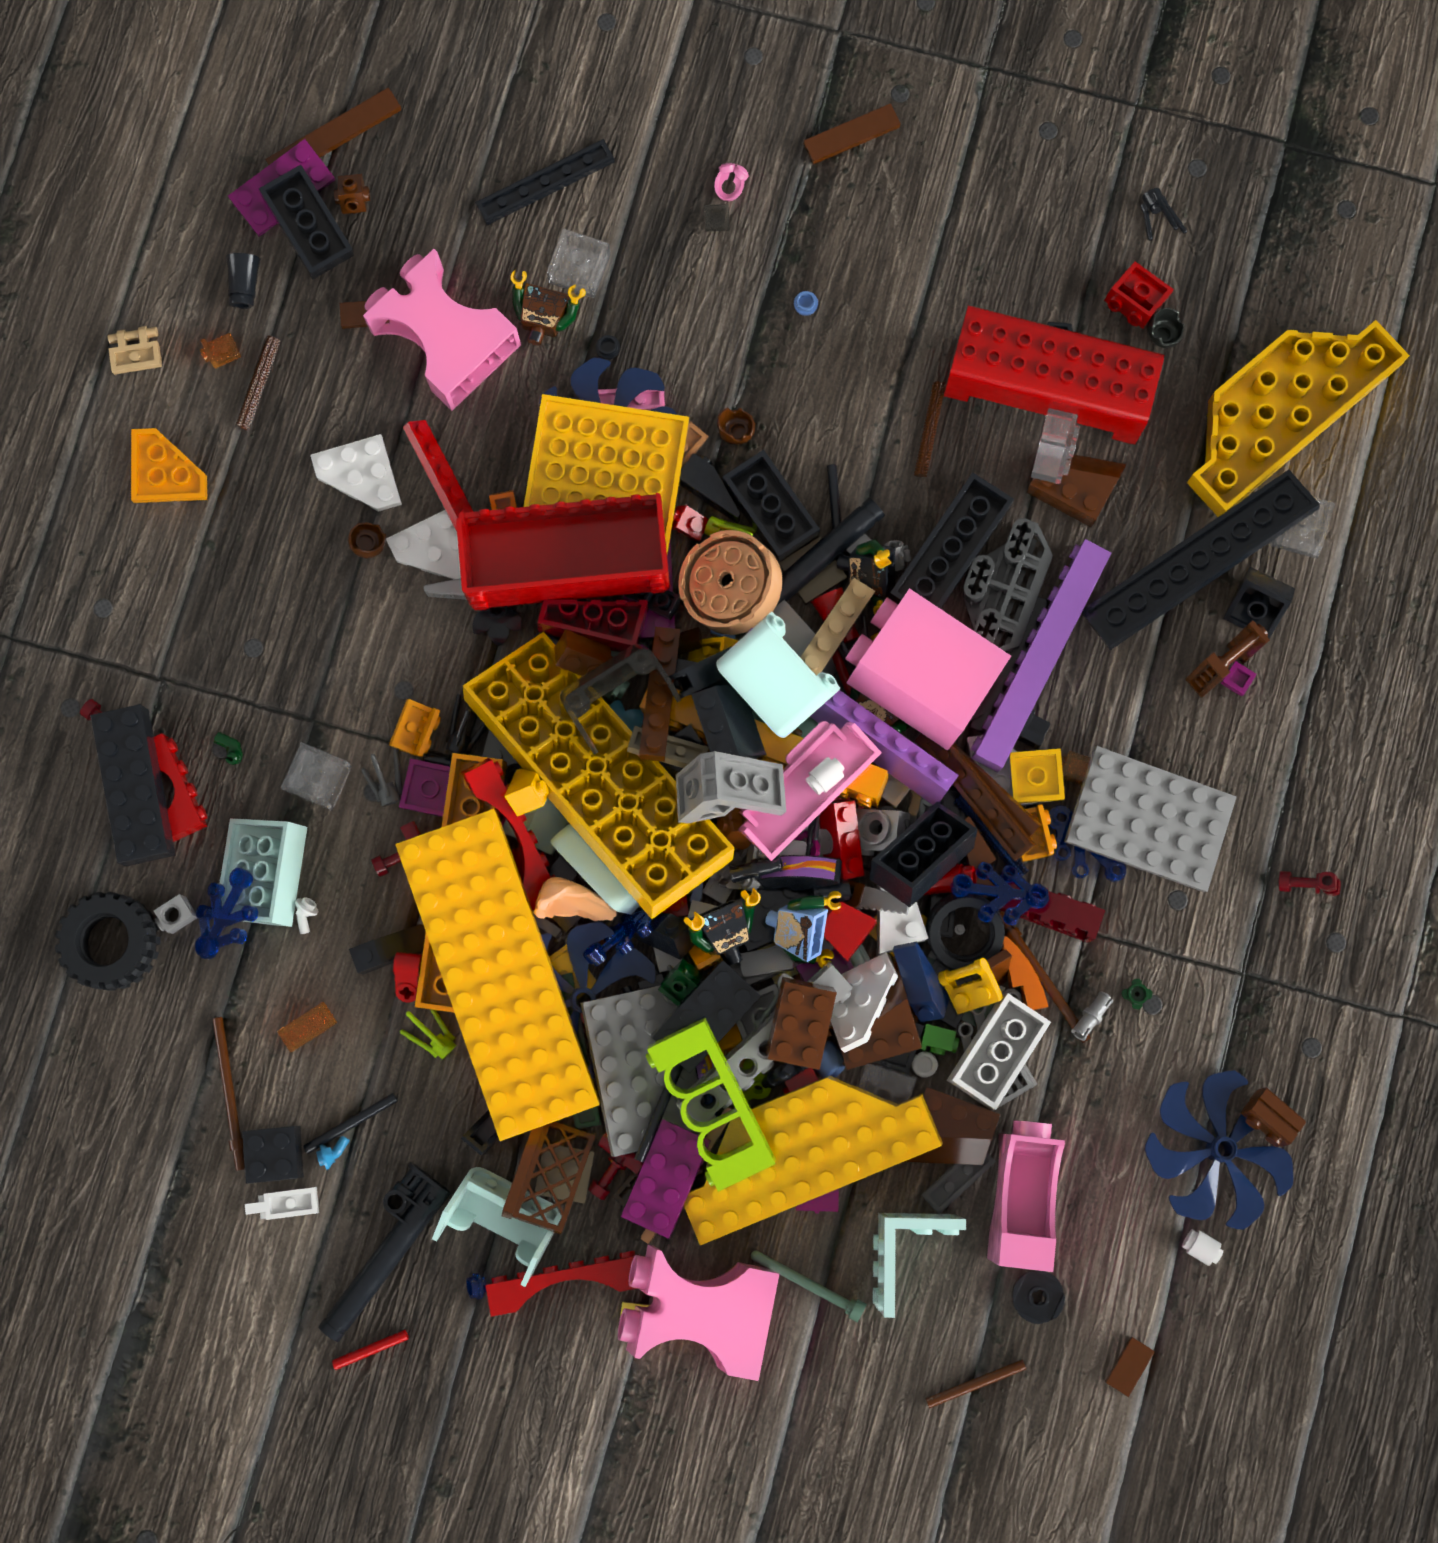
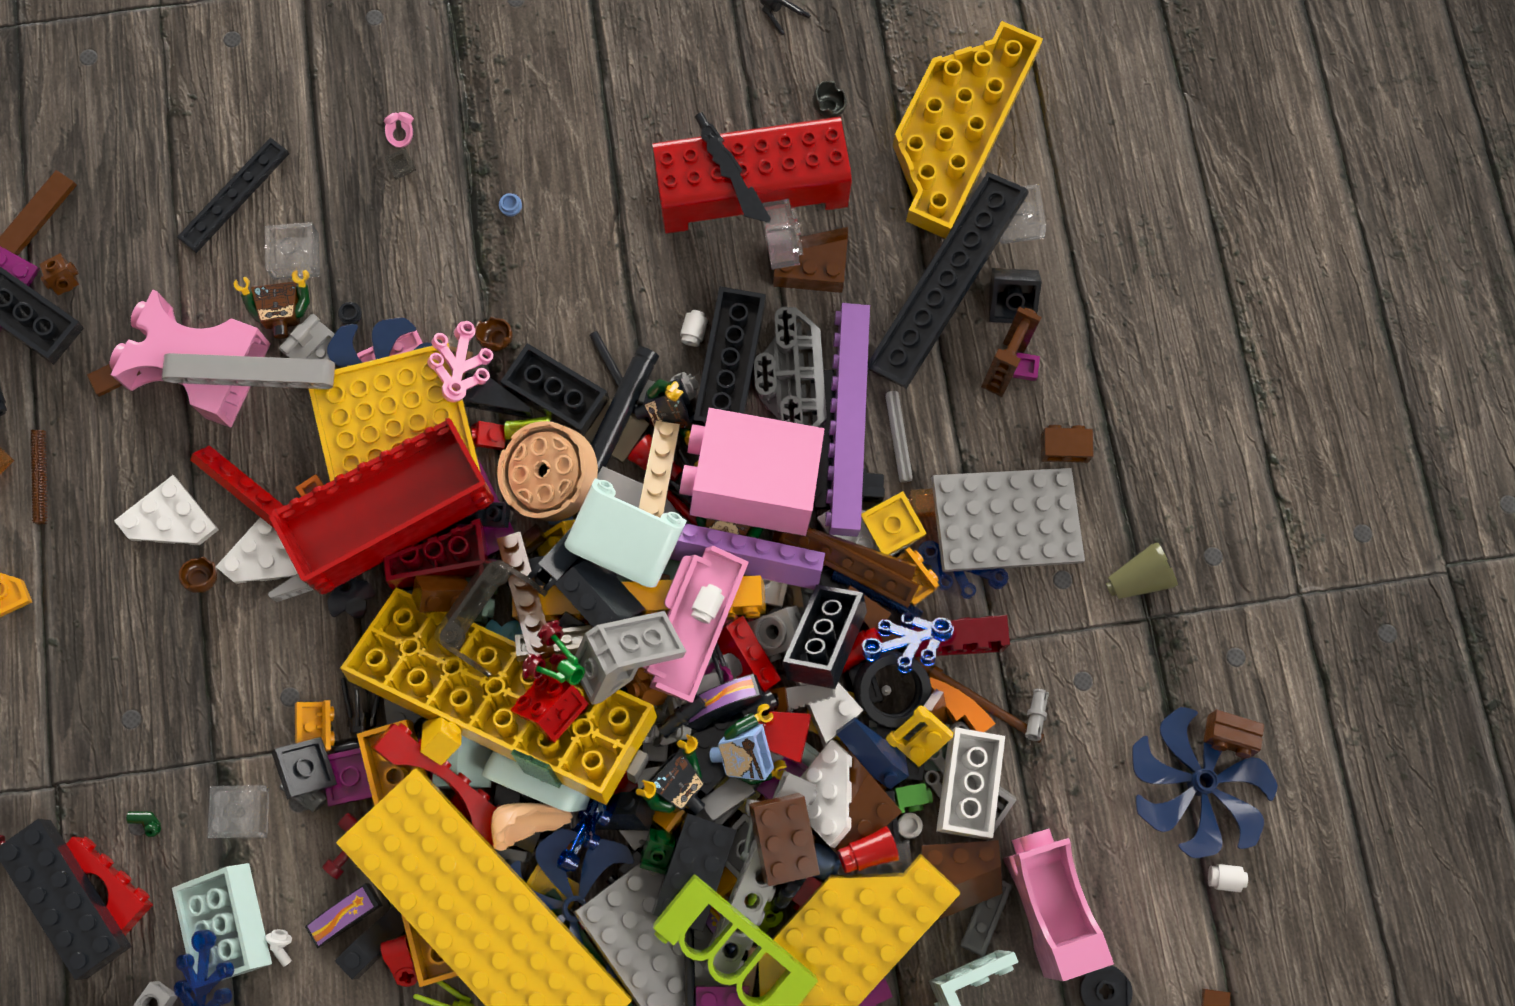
camera: 30 degrees left, 5 degrees down
(372, 912) = (343, 915): none -> slope
(392, 763) = (304, 768): none -> plate
(491, 367) = (248, 371): none -> light grey beam
(557, 362) = (308, 340): none -> light grey plate
(602, 858) = (536, 768): none -> clear green piece
(640, 806) = (550, 706): none -> red bracket
(667, 775) = (563, 666): none -> plant
(690, 441) = (458, 363): none -> bright pink plant
(695, 896) = (637, 766): none -> light grey tile
(851, 133) = (488, 47): reddish brown tile -> none
(874, 1070) = (869, 851): none -> red plant
(930, 429) = (666, 268): reddish brown axle -> none
(930, 501) = (694, 328): none -> white brick
(1032, 363) = (729, 168): none -> black sword
(1082, 693) = (898, 436): none -> light grey axle
(1138, 295) = (793, 82): red plate -> none
(1144, 994) = (1073, 675): dark green plate -> none
(1242, 771) = (1066, 444): none -> reddish brown brick
(1256, 929) = (1143, 574): none -> olive cone
(1326, 881) = (1183, 507): dark red bar -> none

